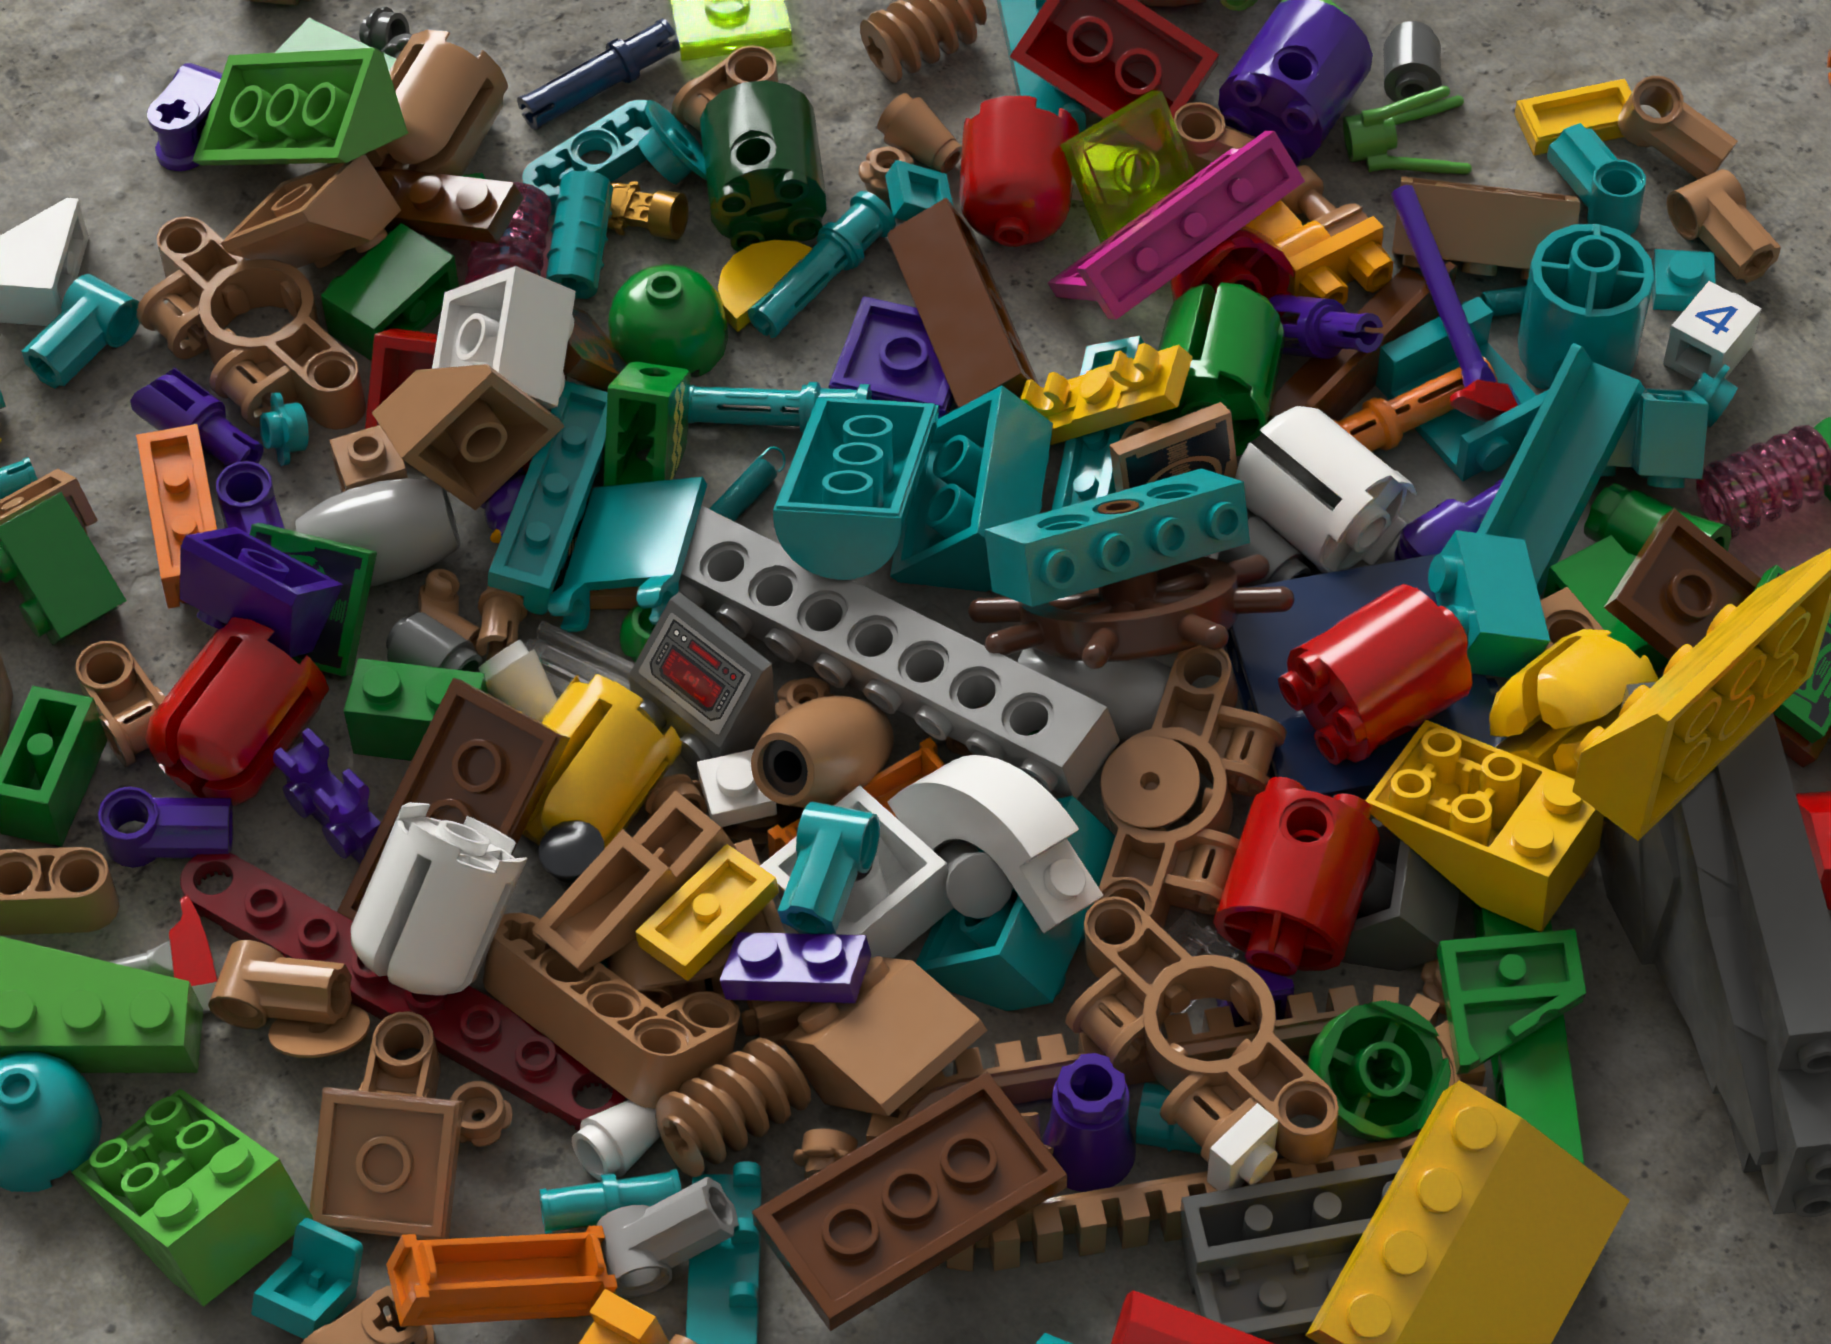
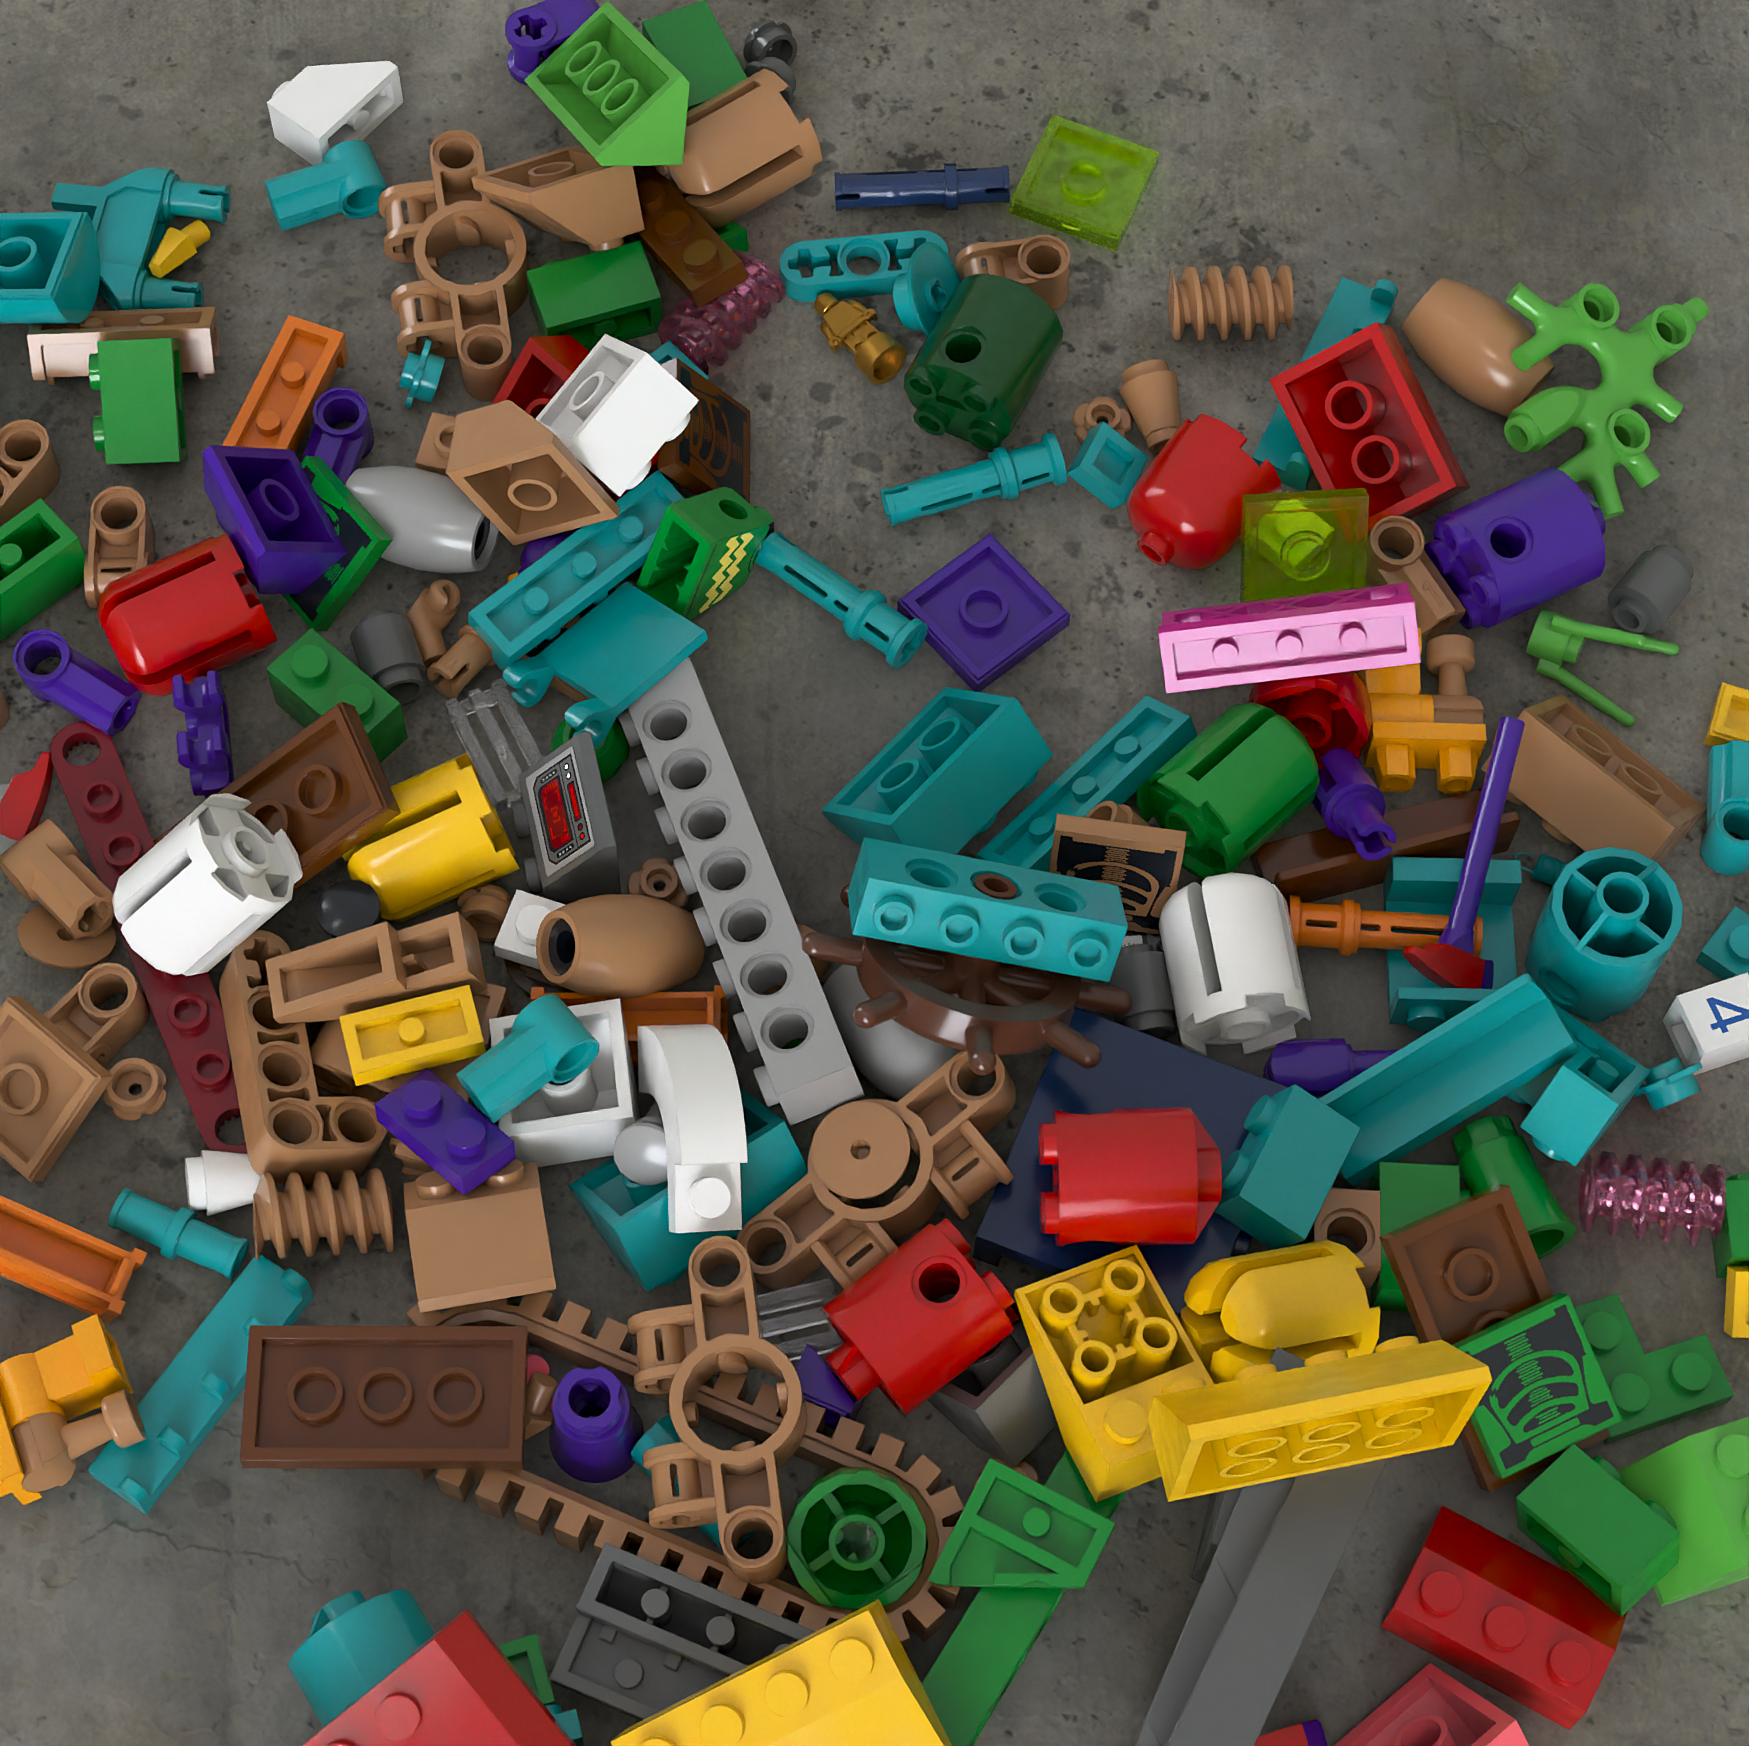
camera: 30 degrees right, 10 degrees up
(180, 402) = (356, 309): dark purple arm -> none
(519, 680) = (434, 726): white cone -> none
(580, 232) = (787, 335): teal axle -> none
(649, 1241) = (179, 1290): light grey piece -> none
(669, 319) = (804, 463): green cylinder -> none
(747, 487) = (748, 659): teal piece -> none
(753, 274) = (912, 456): yellow tile -> none
(822, 1149) = (374, 1305): medium nougat plate -> none
(853, 484) = (819, 713): teal brick -> none
(960, 304) = (1064, 599): reddish brown panel -> none
(1111, 392) = (1109, 759): yellow plate -> none
(1244, 1151) = (683, 1538): white plate -> none

